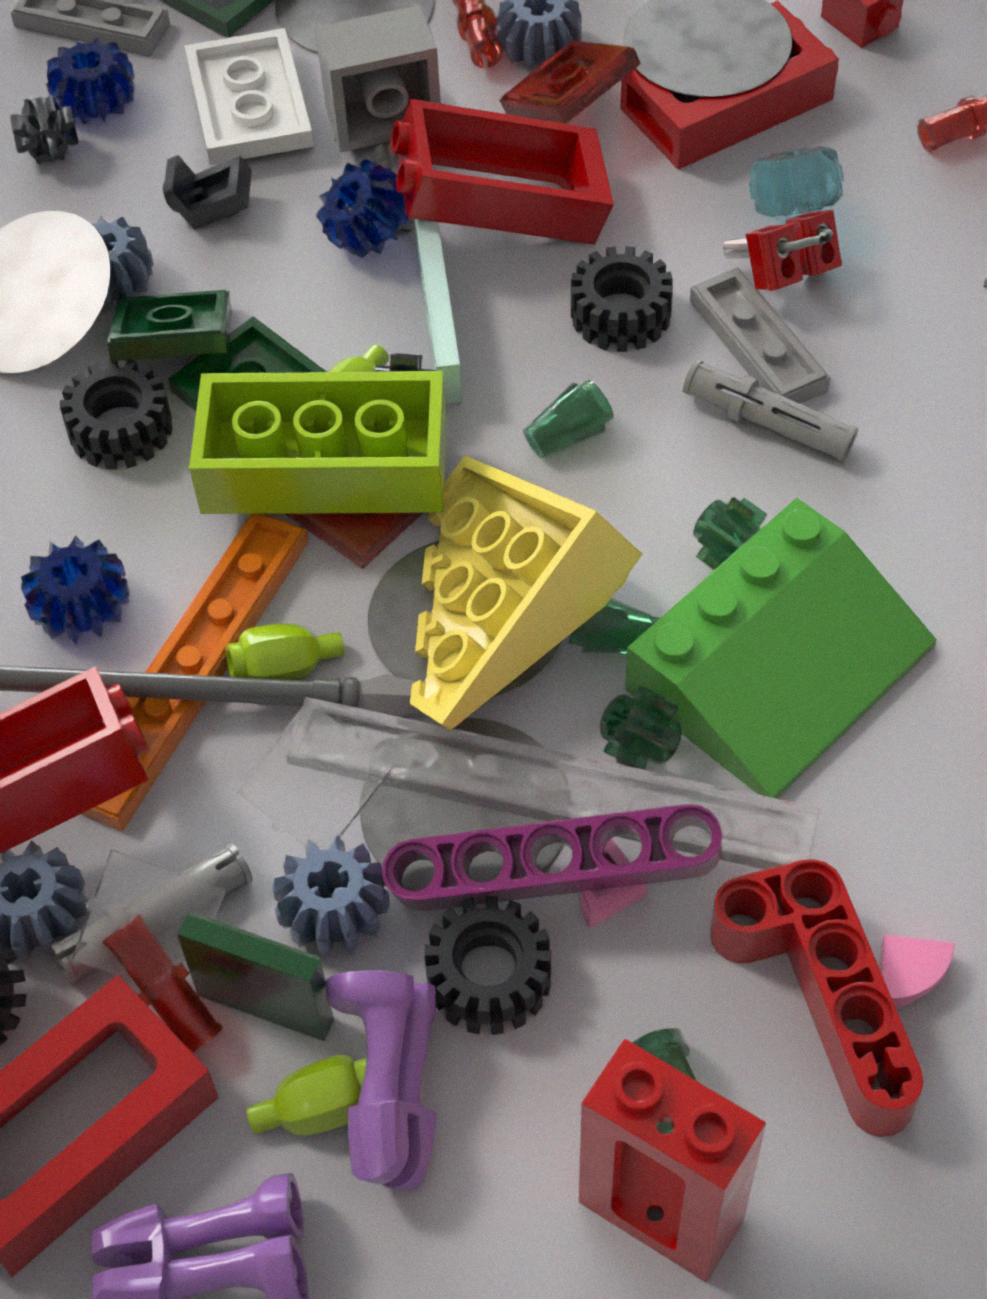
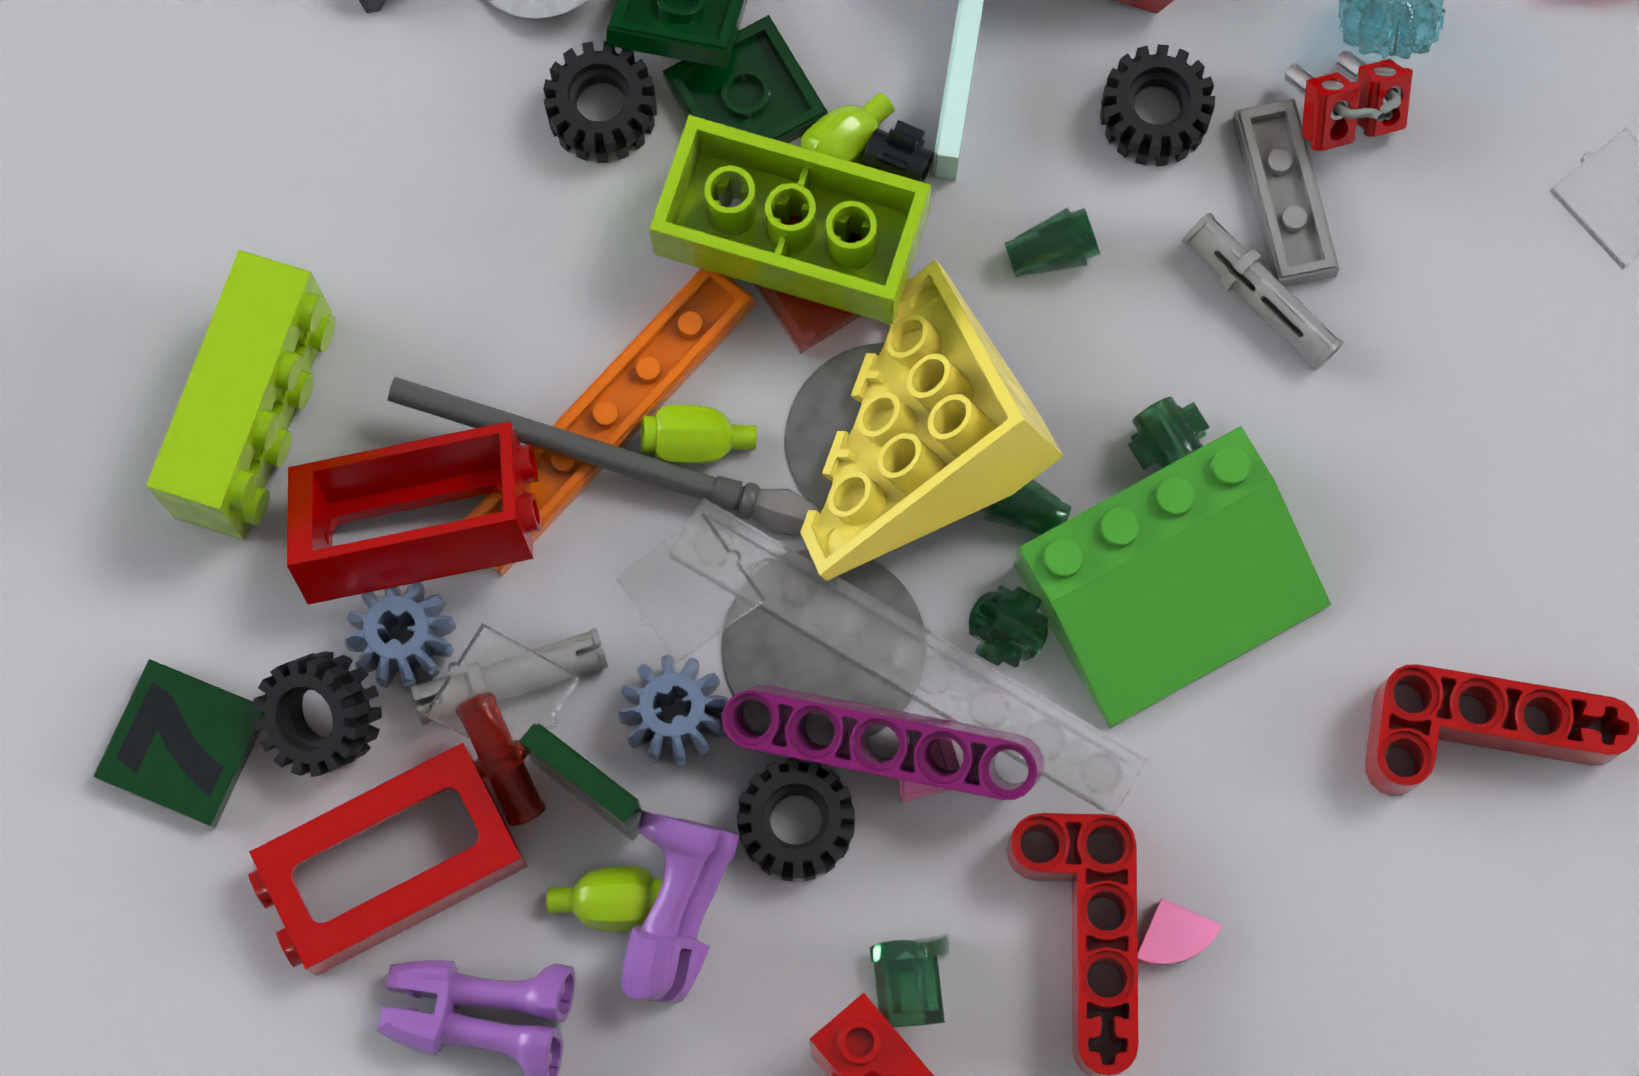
camera: 15 degrees right, 20 degrees up
(75, 589) = (525, 322): clear blue gear -> none

